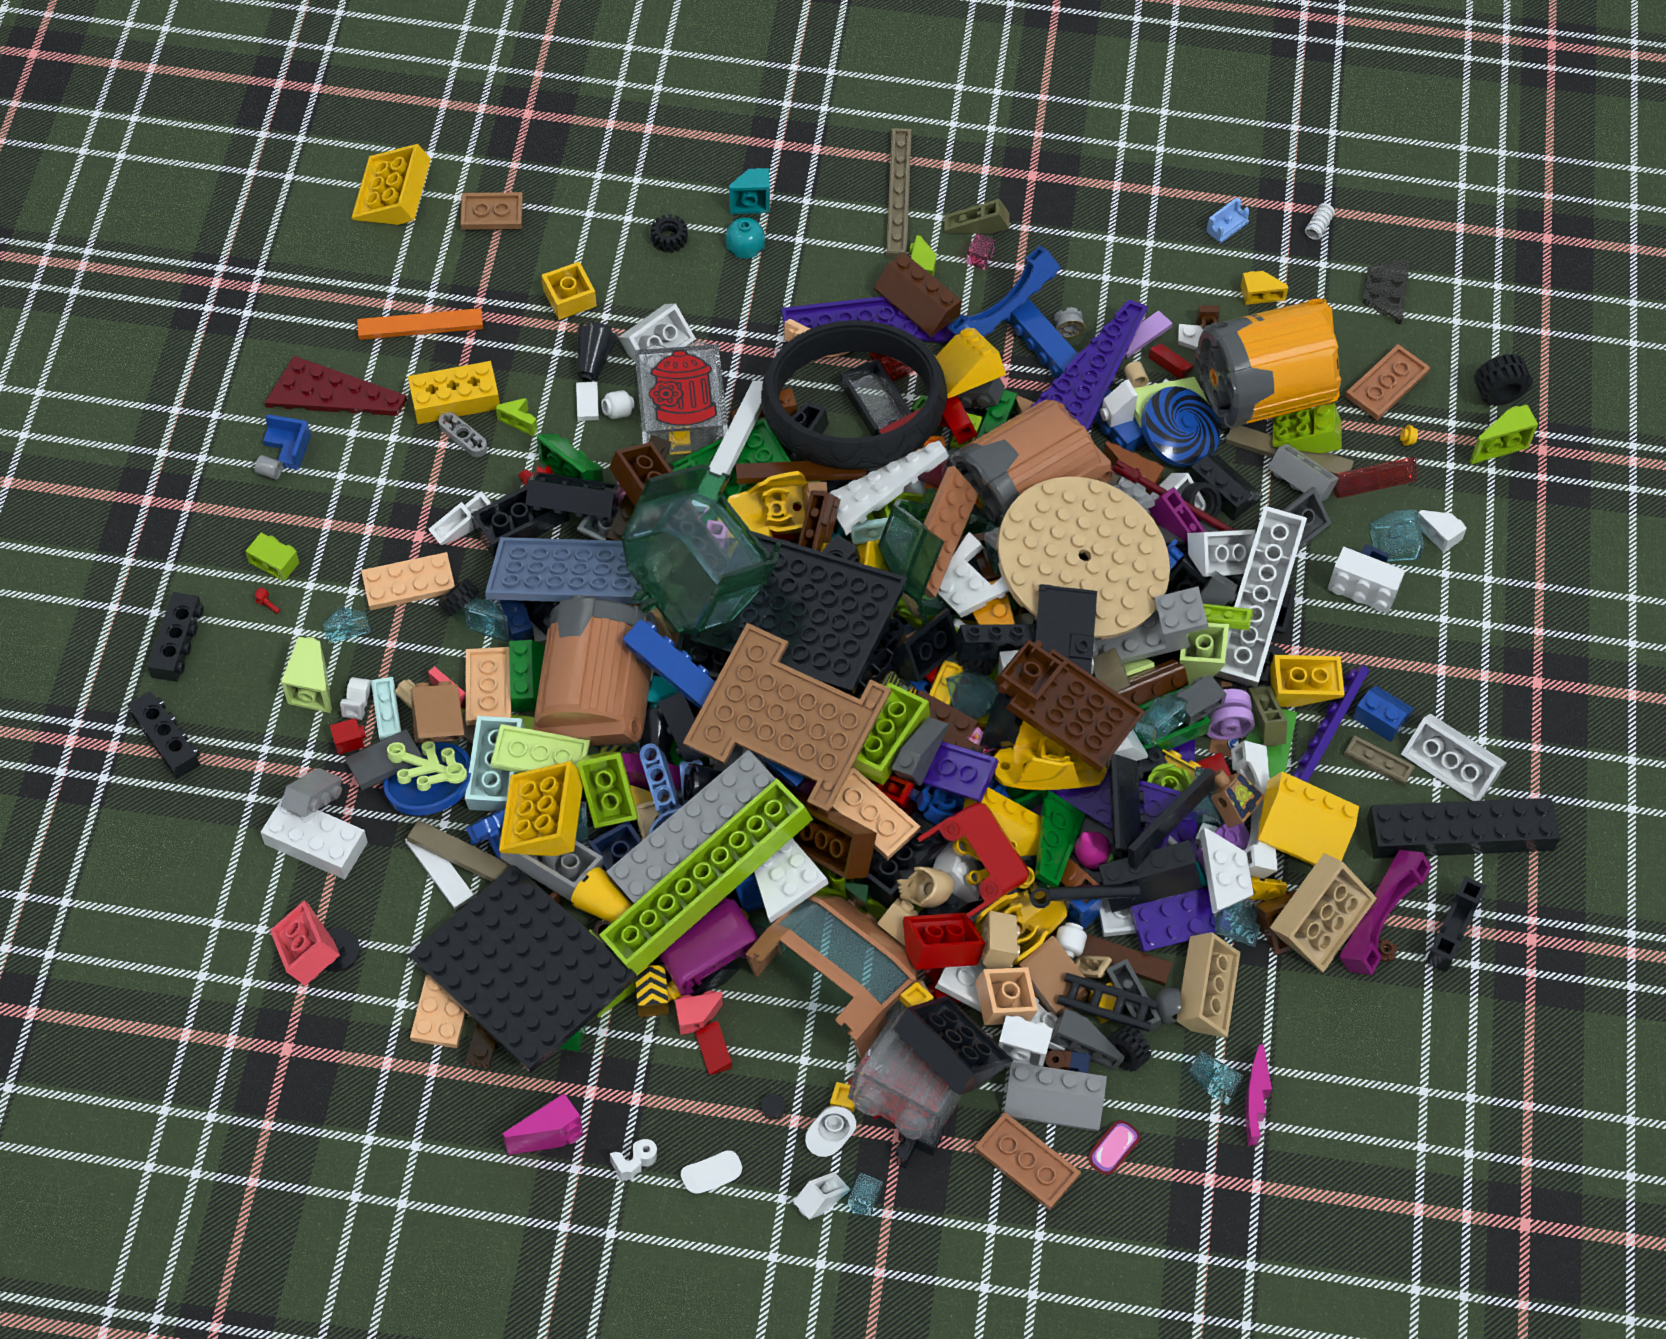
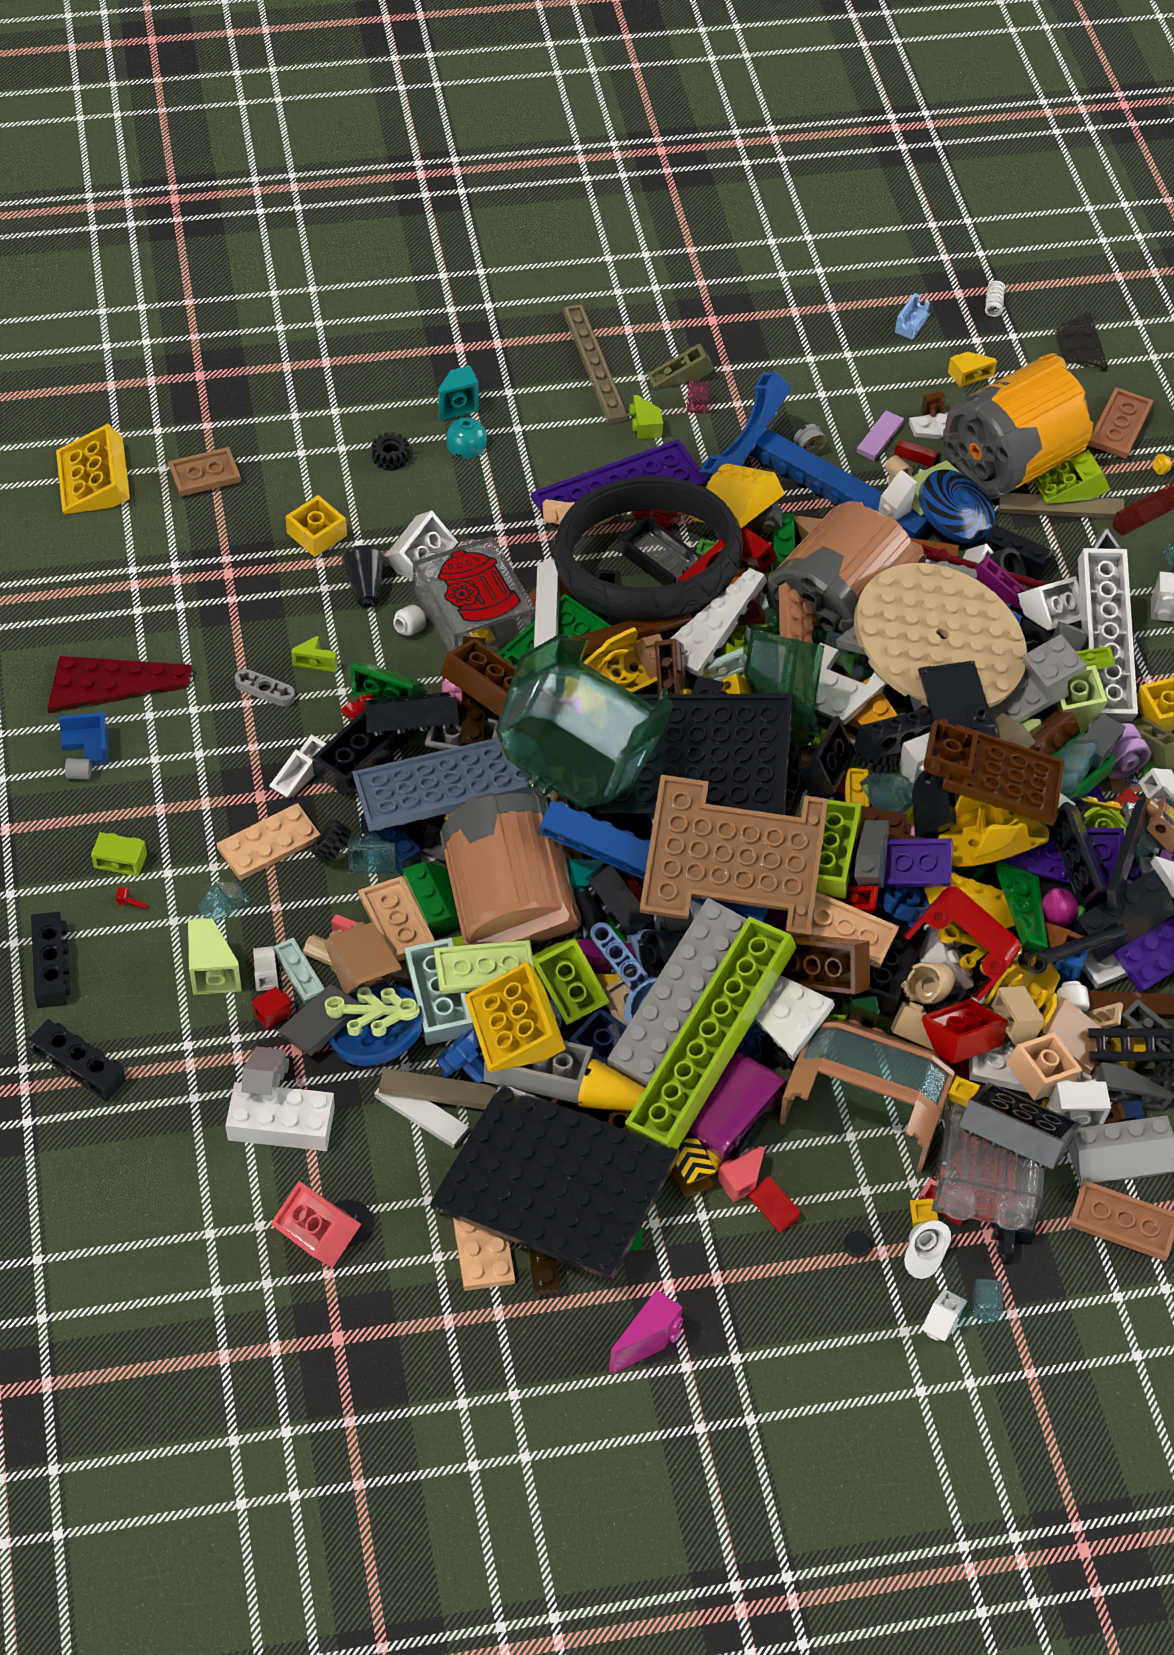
camera: 20 degrees left, 5 degrees down
(420, 324) = (175, 594): orange tile -> none
(454, 390) = (241, 646): yellow brick -> none
(587, 401) = (376, 625): white tile -> none
(643, 1155) = (750, 1331): white leg -> none
(711, 1172) = (825, 1326): white sticker -> none
(918, 295) = (659, 447): reddish brown slope -> none
(1095, 367) = (858, 466): dark purple wing -> none
(1302, 472) = (1083, 519): light grey brick -> none

